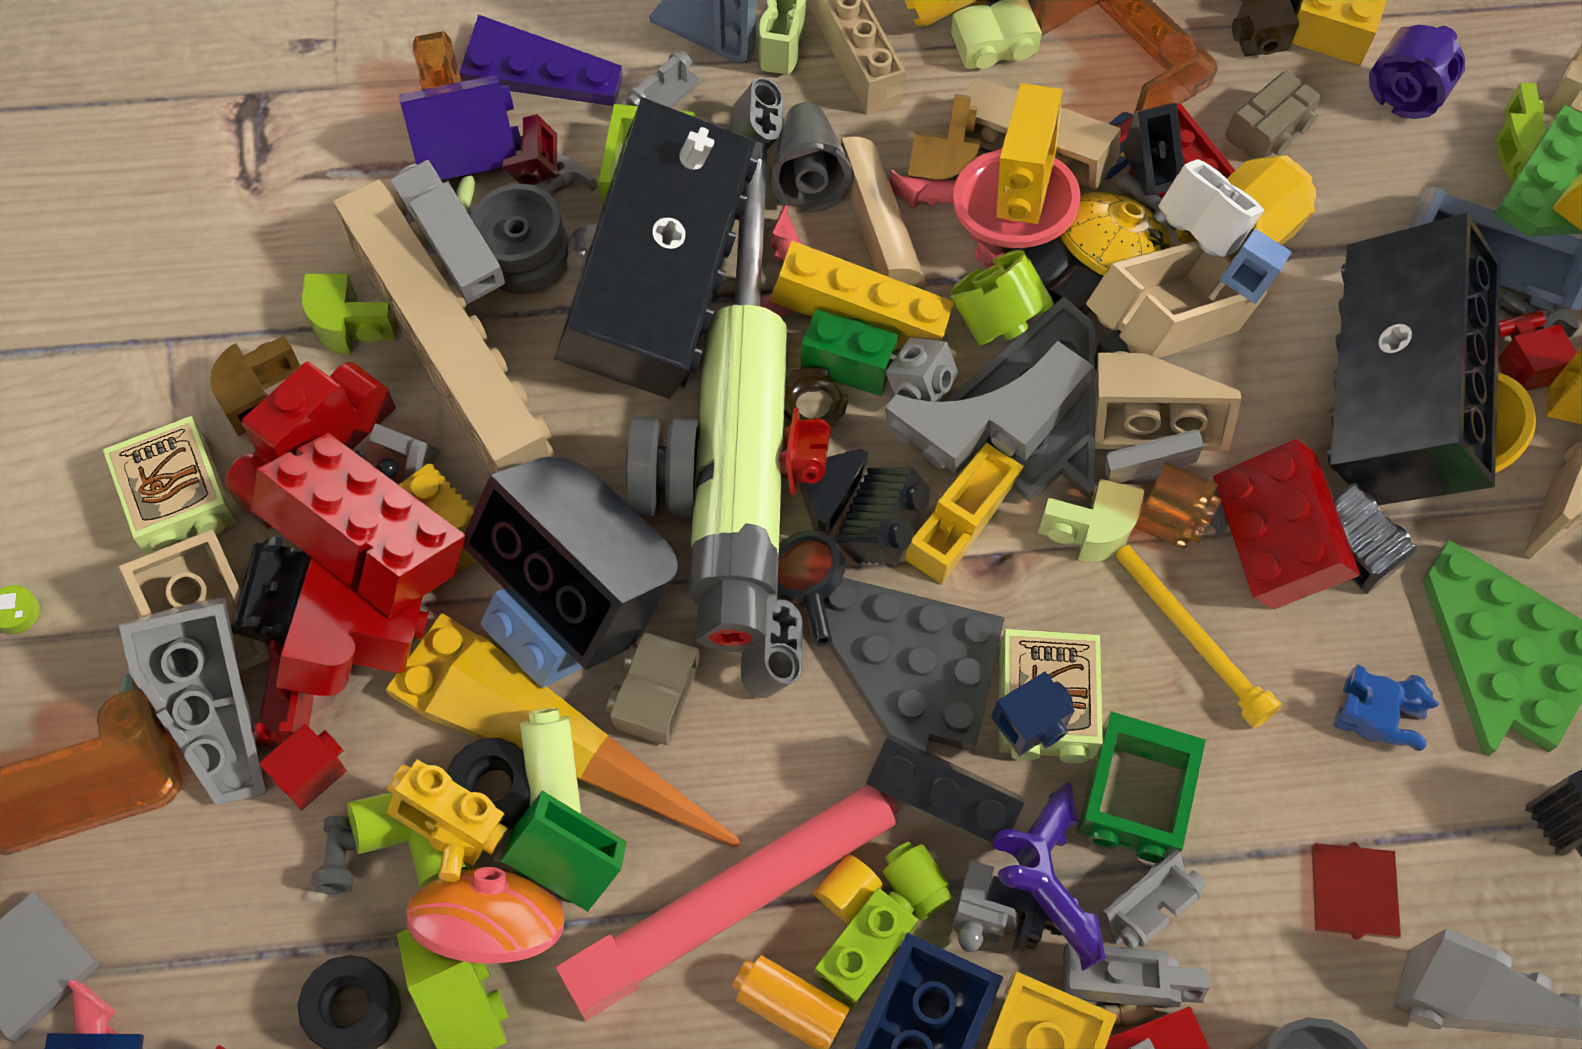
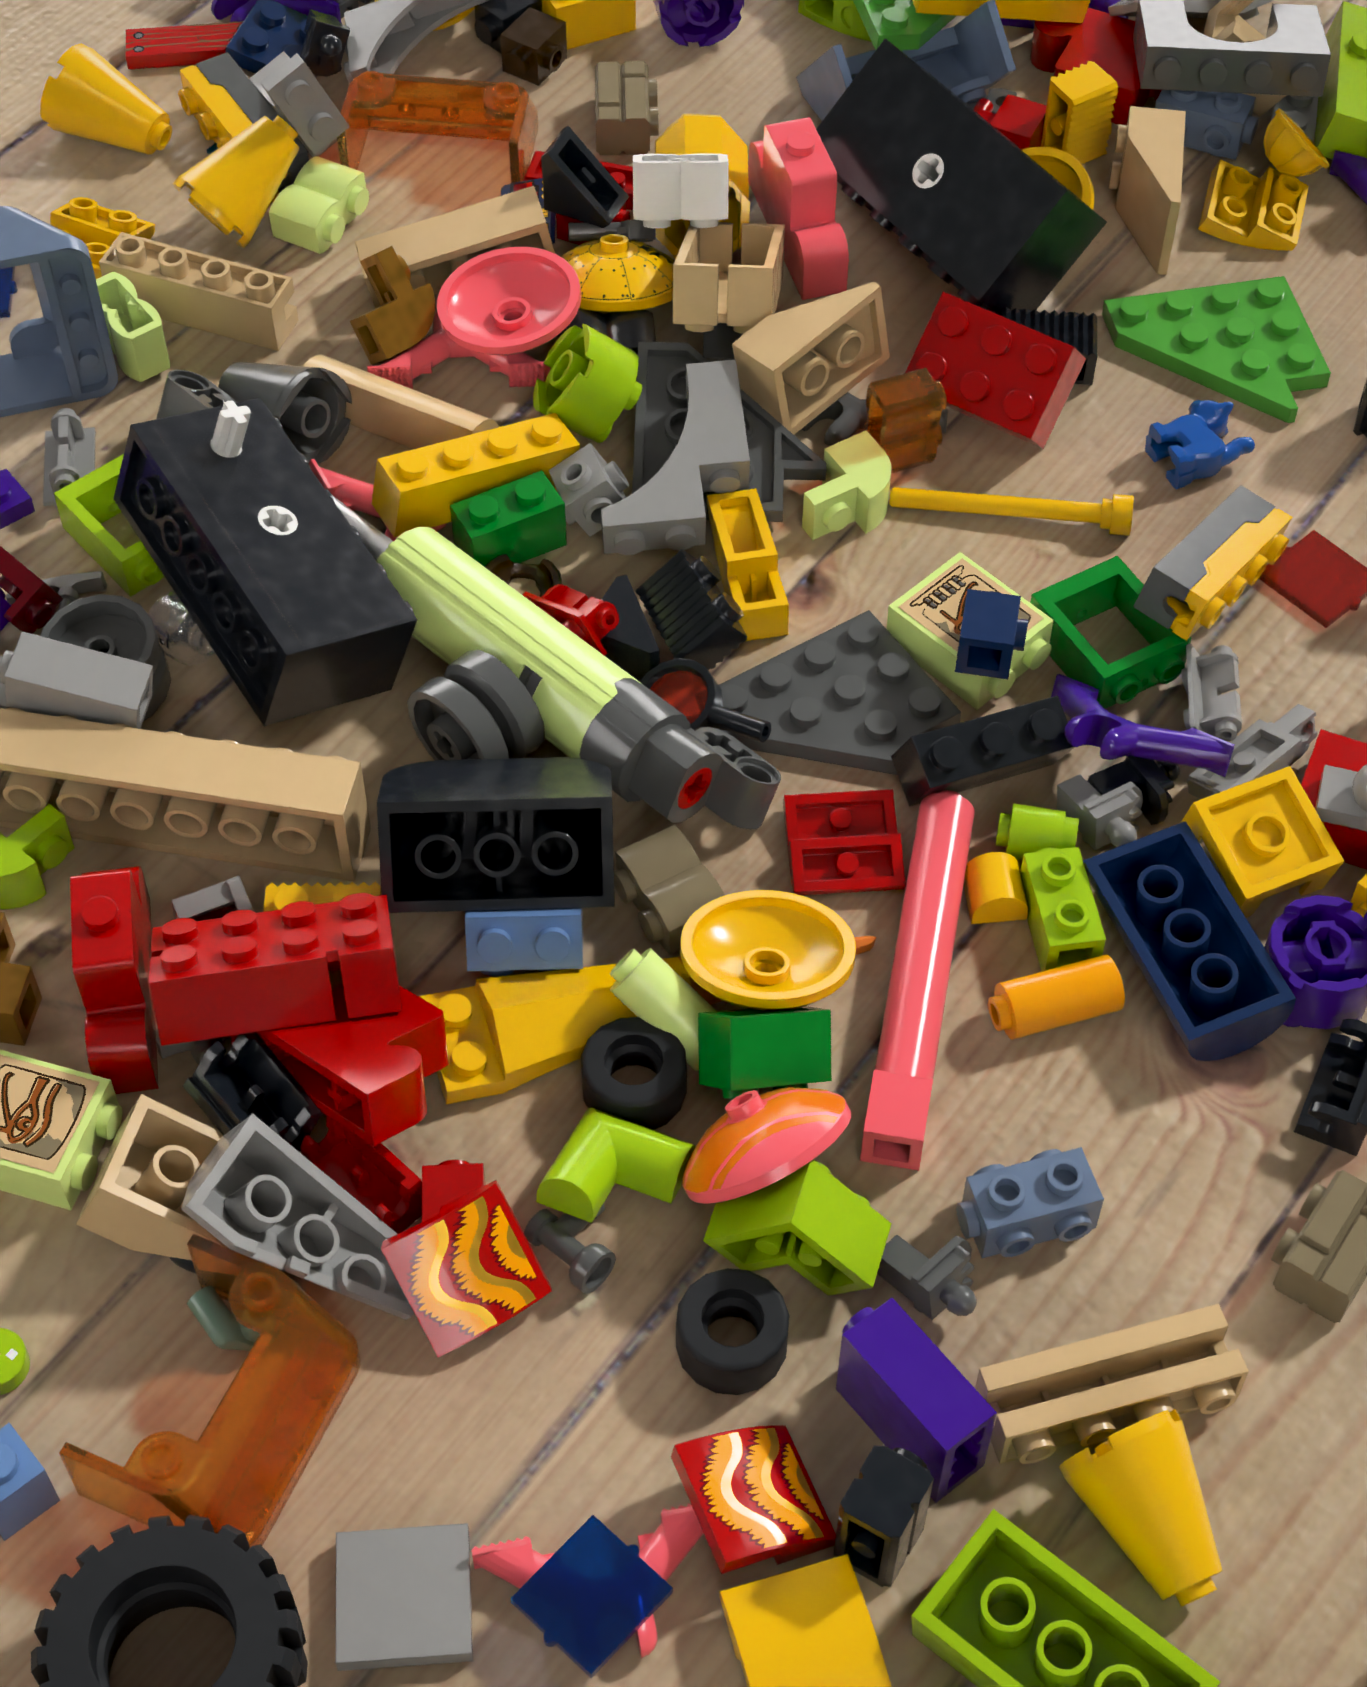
camera: 45 degrees left, 10 degrees down
(255, 811) = (466, 1268): none -> slope
(446, 814) = (643, 1098): yellow brick -> none
(643, 766) = (767, 949): none -> yellow dish
(797, 761) = (843, 842): none -> red slope
(1028, 153) = (501, 247): yellow window -> none
(1151, 456) = (852, 392): light grey tile -> none
(1255, 266) = (762, 204): medium blue brick -> none
(1267, 810) = (1214, 563): none -> piece
(1297, 291) = (799, 189): none -> coral brick

